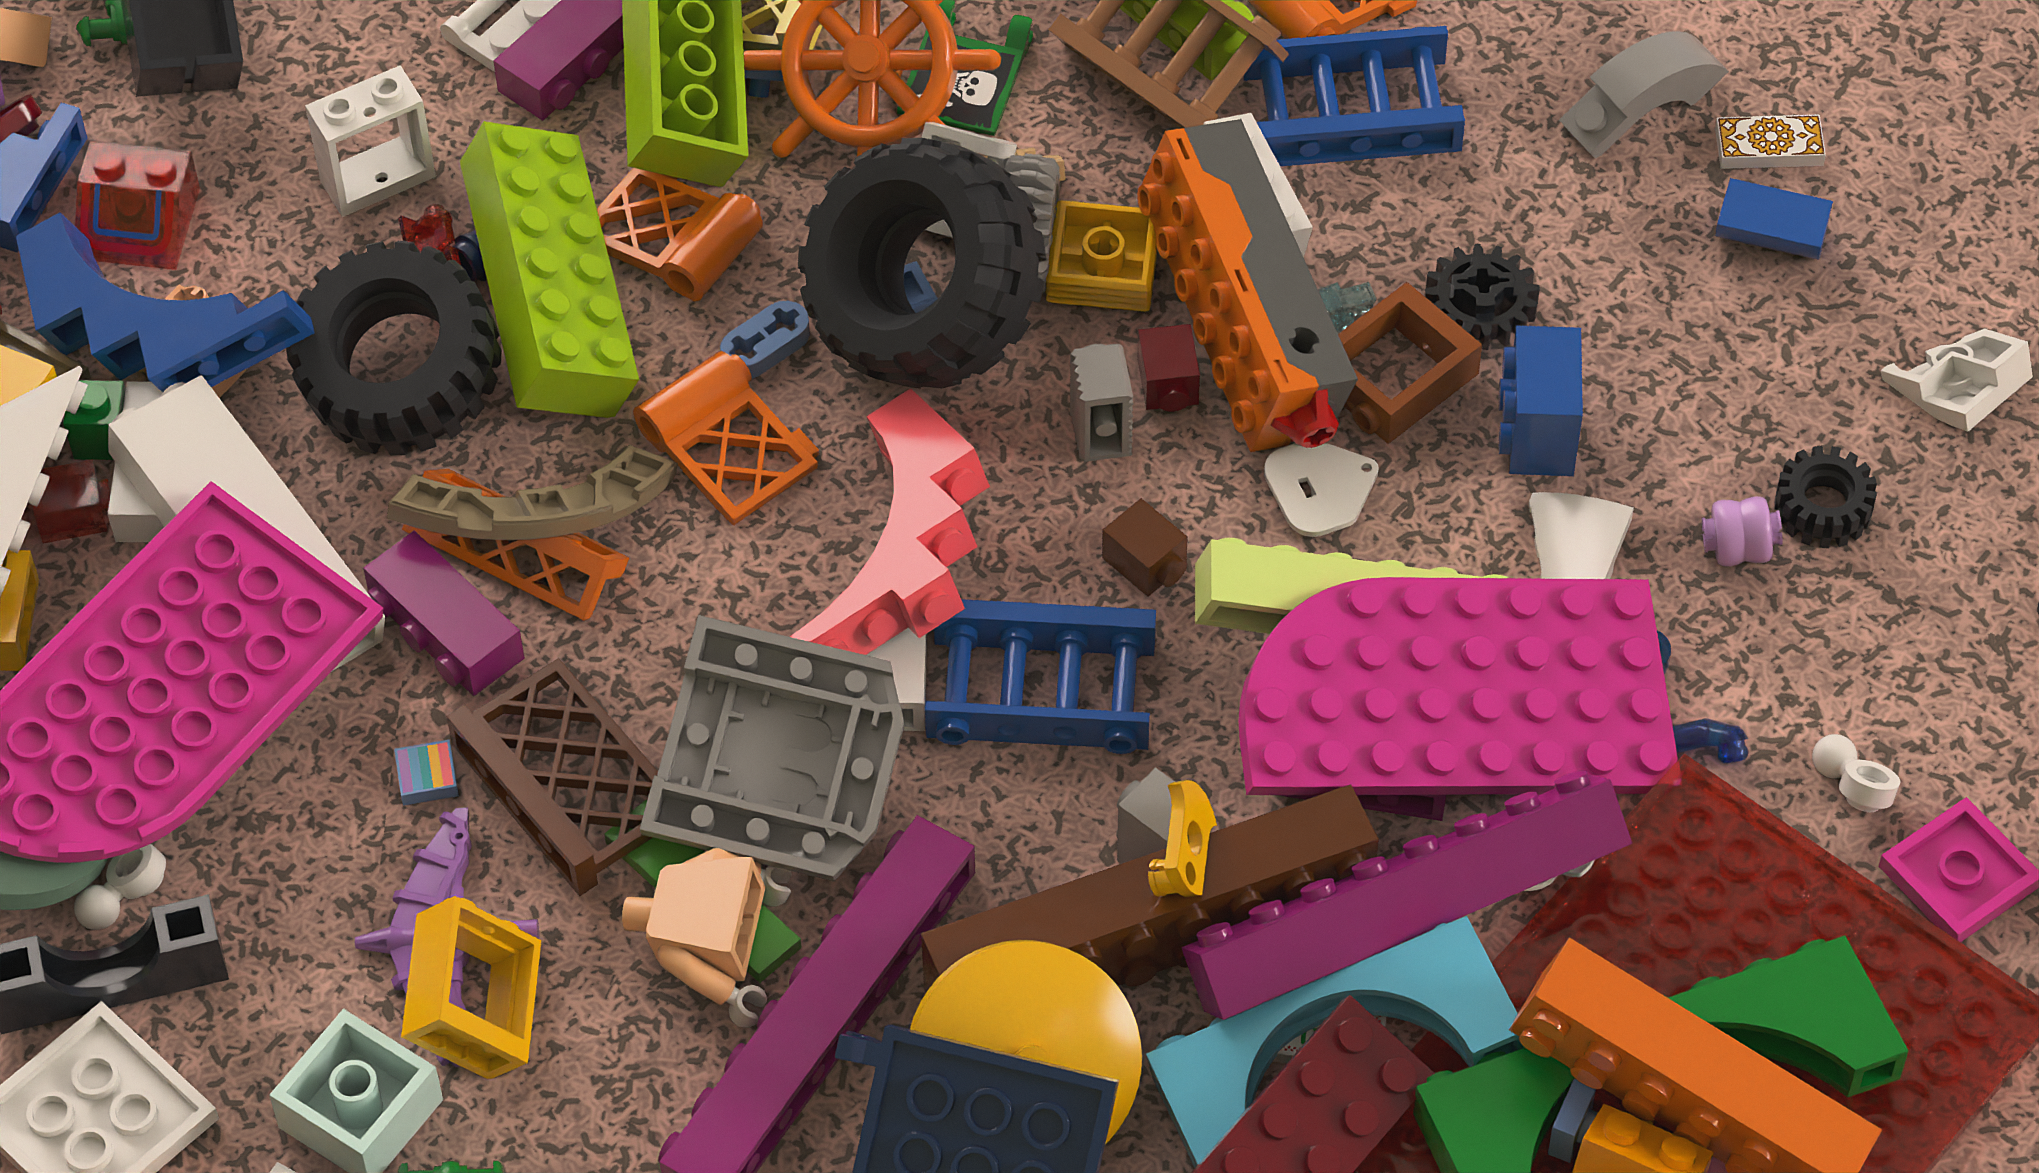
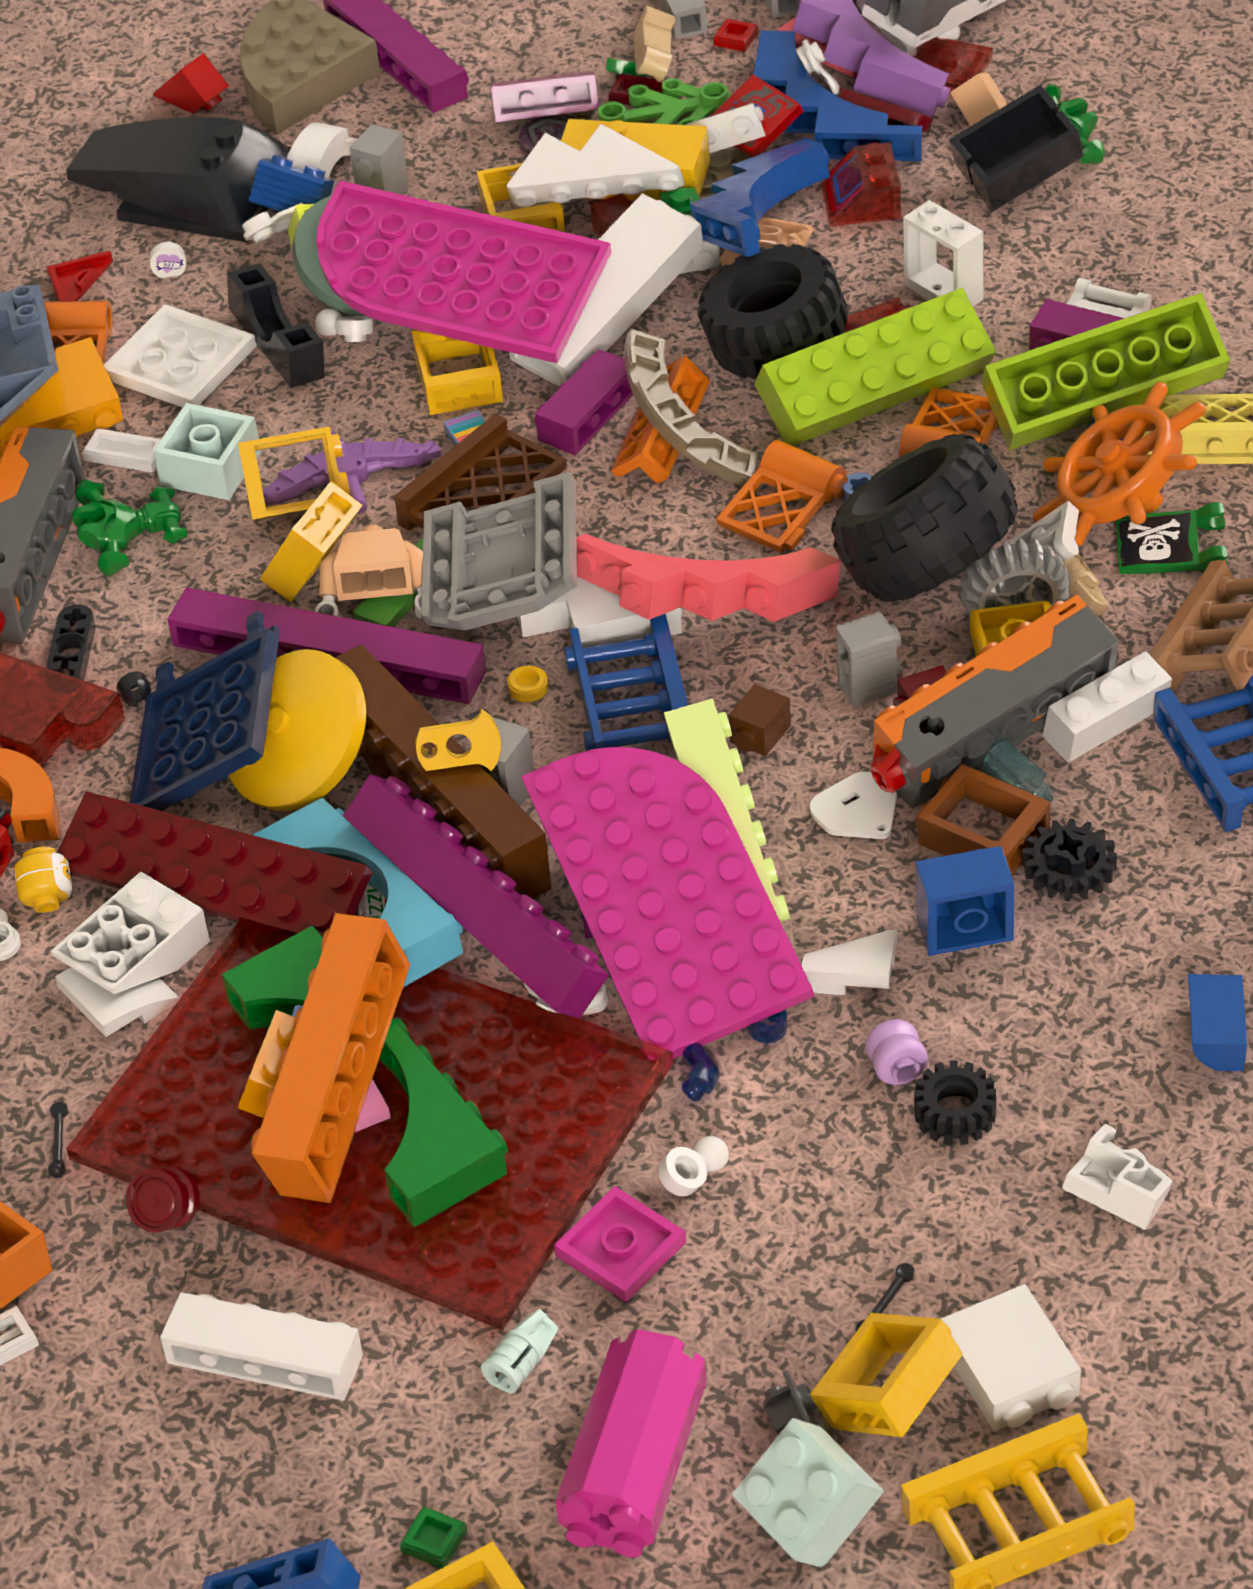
camera: 80 degrees right, 10 degrees down
(342, 797) = (455, 389): none -> yellow window
(672, 942) = (310, 541): none -> yellow window
(967, 795) = (527, 683): none -> yellow tile

